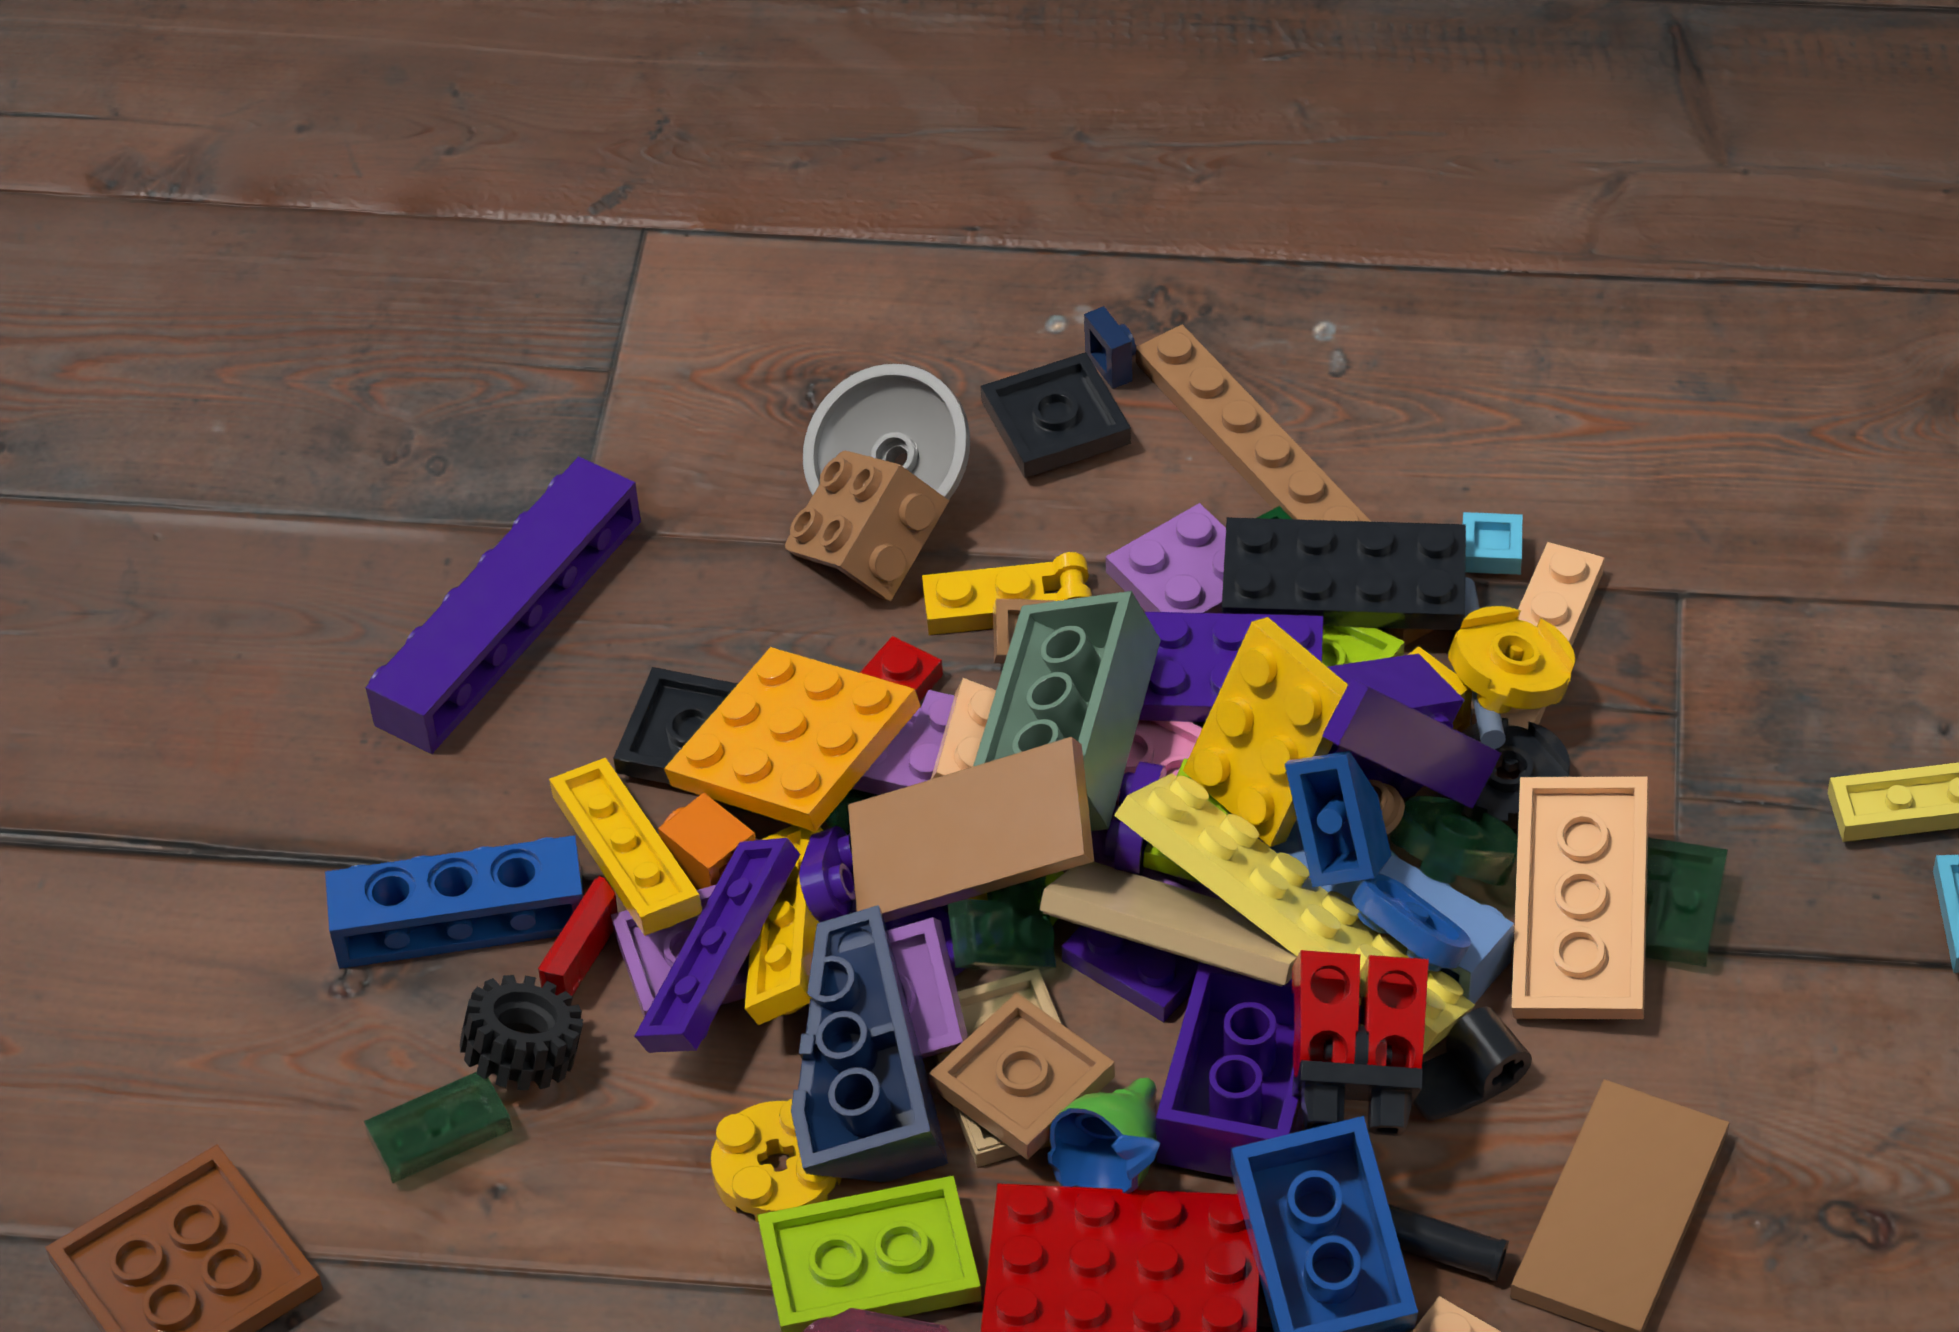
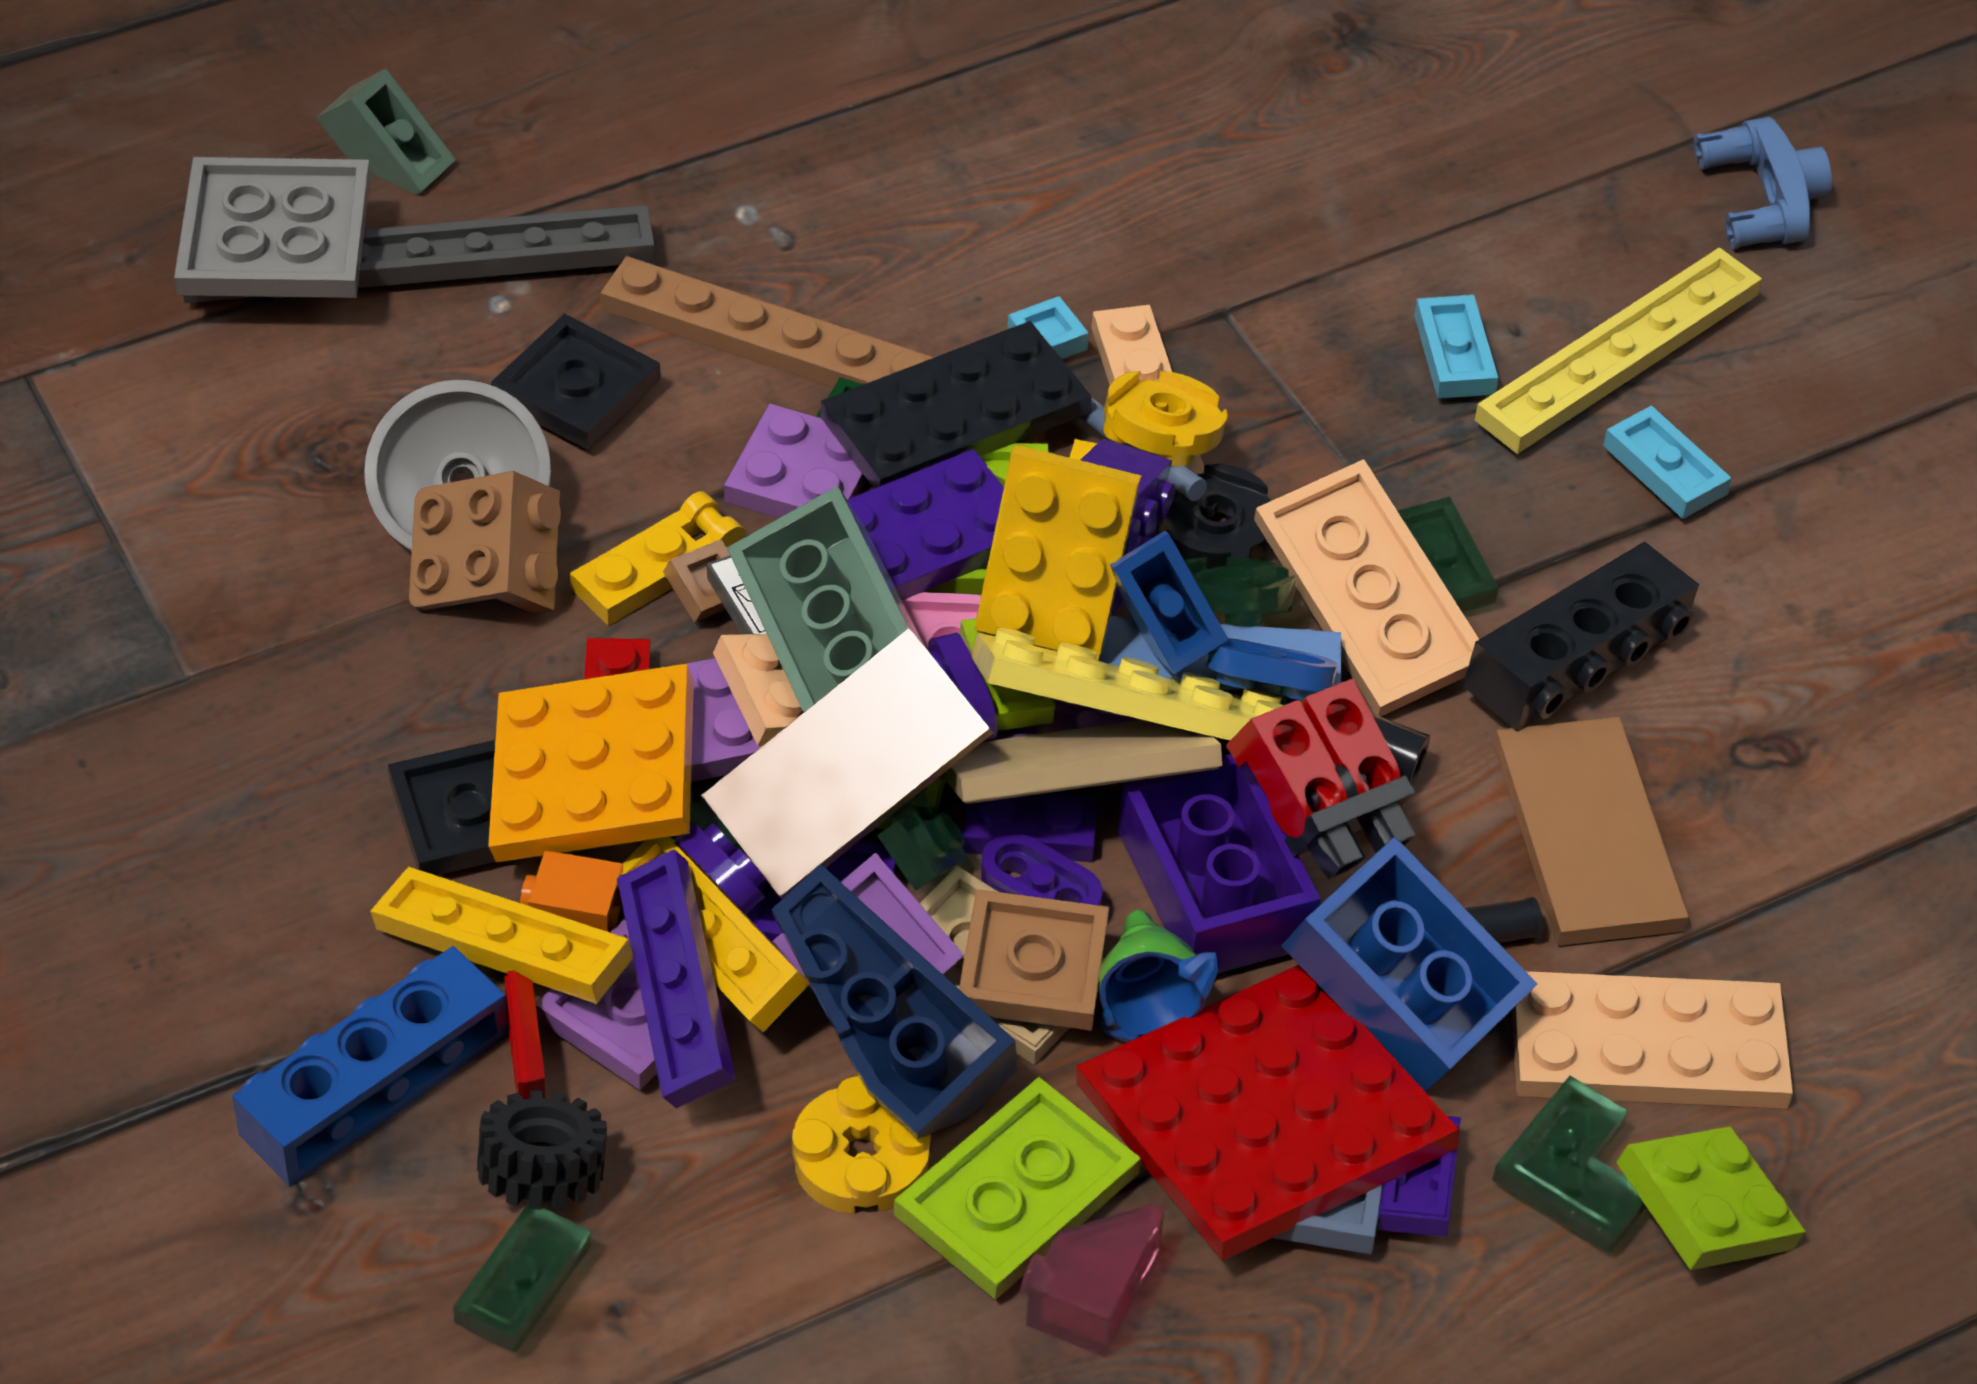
camera: 40 degrees left, 0 degrees up
(503, 604) = (186, 777): dark purple brick -> none
(901, 181) = (273, 227): none -> light grey plate
(1016, 253) = (500, 247): none -> dark grey plate
(1065, 140) = (383, 126): none -> sand green slope
(1100, 1019) = (1042, 870): none -> dark purple plate
(1109, 346) = (578, 297): dark blue plate -> none
(1411, 743) = (1180, 507): tile -> none
(1746, 1031) = (1581, 636): none -> black brick
(1860, 716) = (1456, 346): none -> medium azure plate

